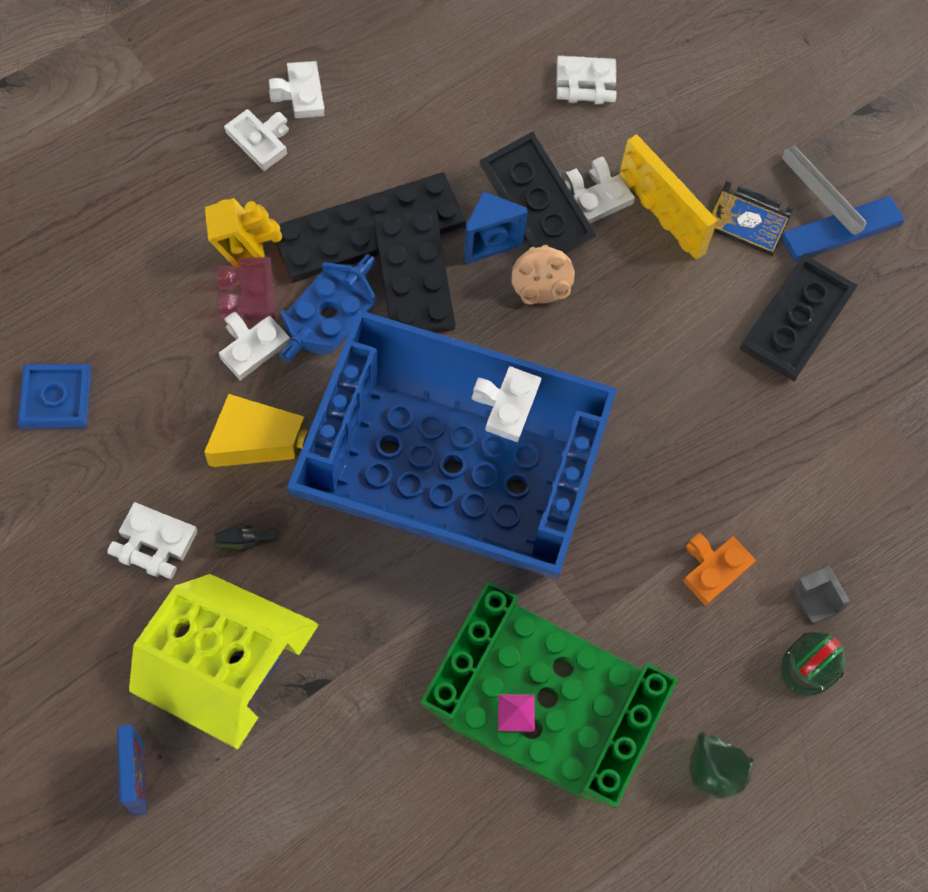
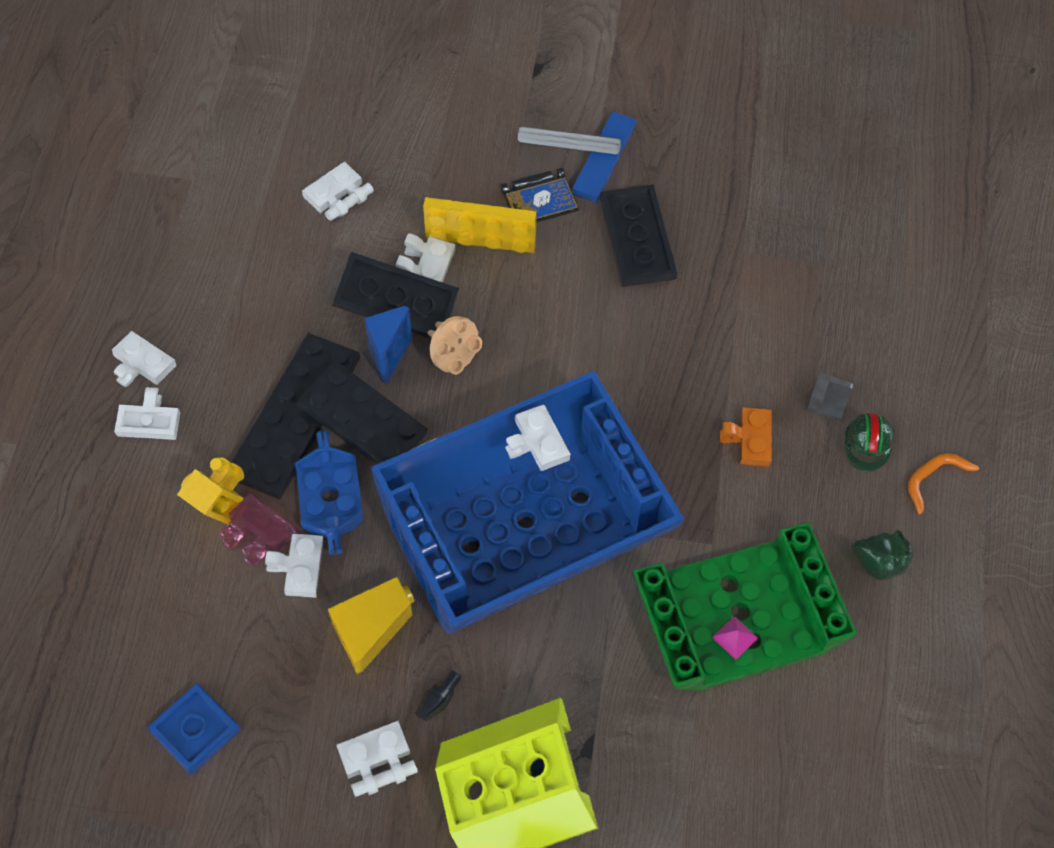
camera: 40 degrees left, 5 degrees down
(848, 736) = (928, 468): none -> orange animal

